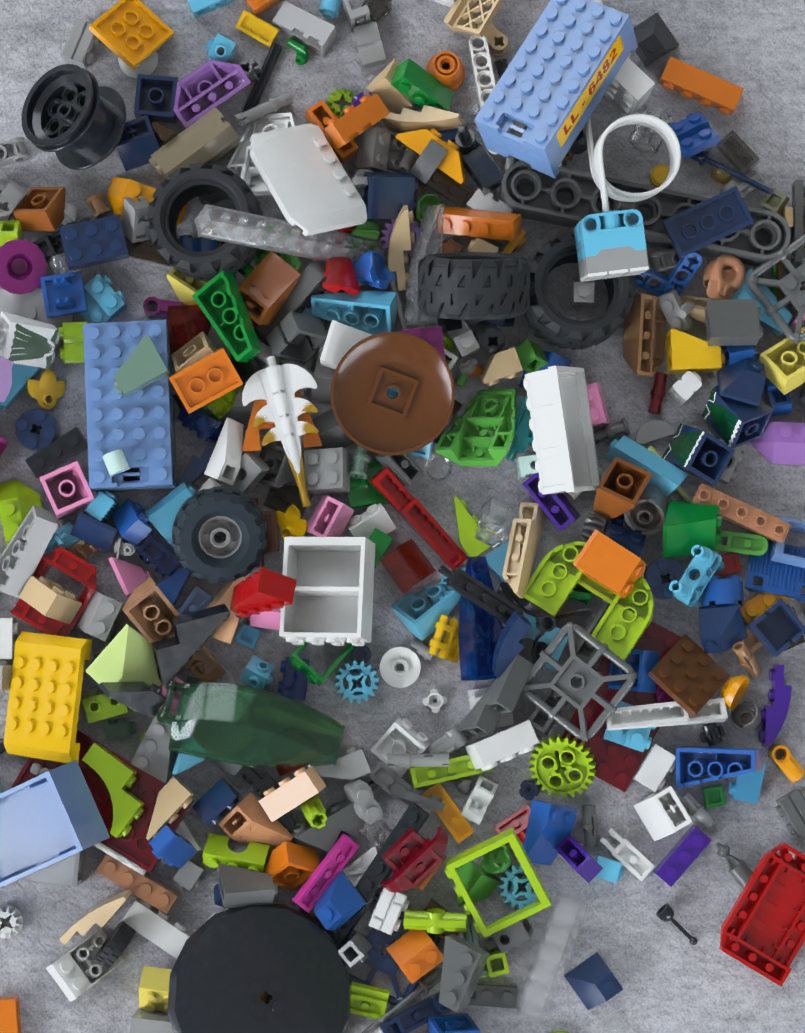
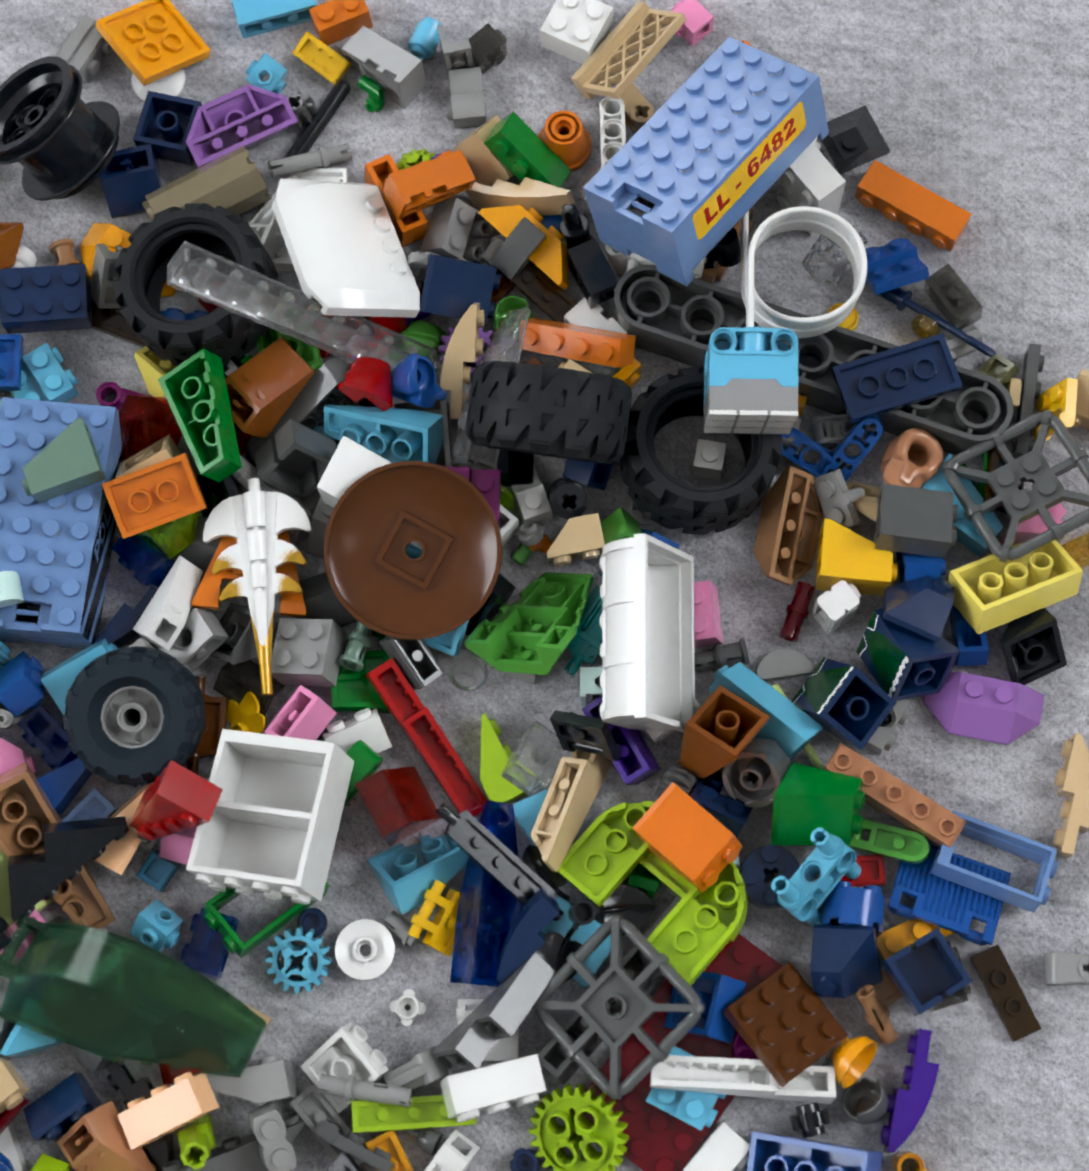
camera: 20 degrees right, 10 degrees down
(163, 133) = (169, 170): dark brown slope -> none
(528, 502) = (585, 734): none -> black plate

